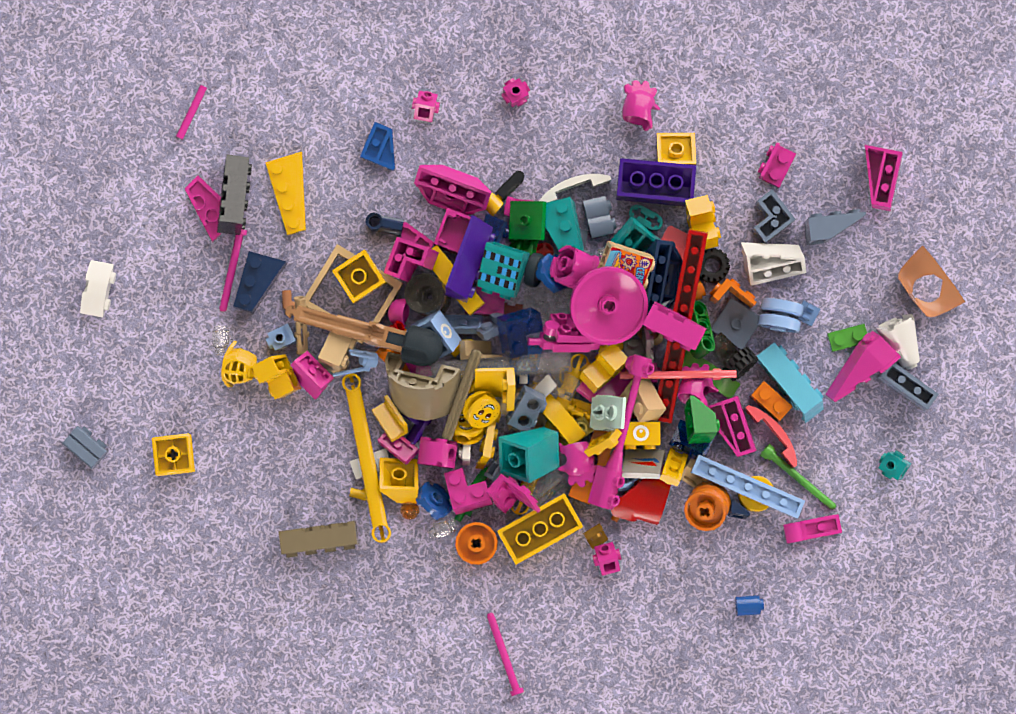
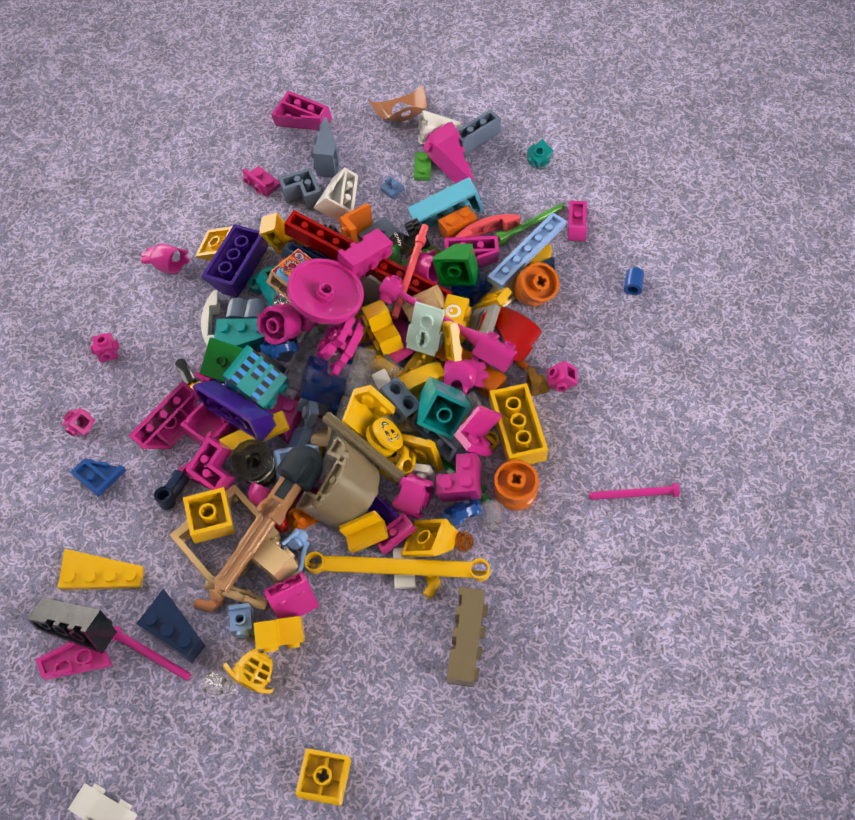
camera: 65 degrees left, 25 degrees down
(780, 316) = (386, 197): light blue wheel -> none

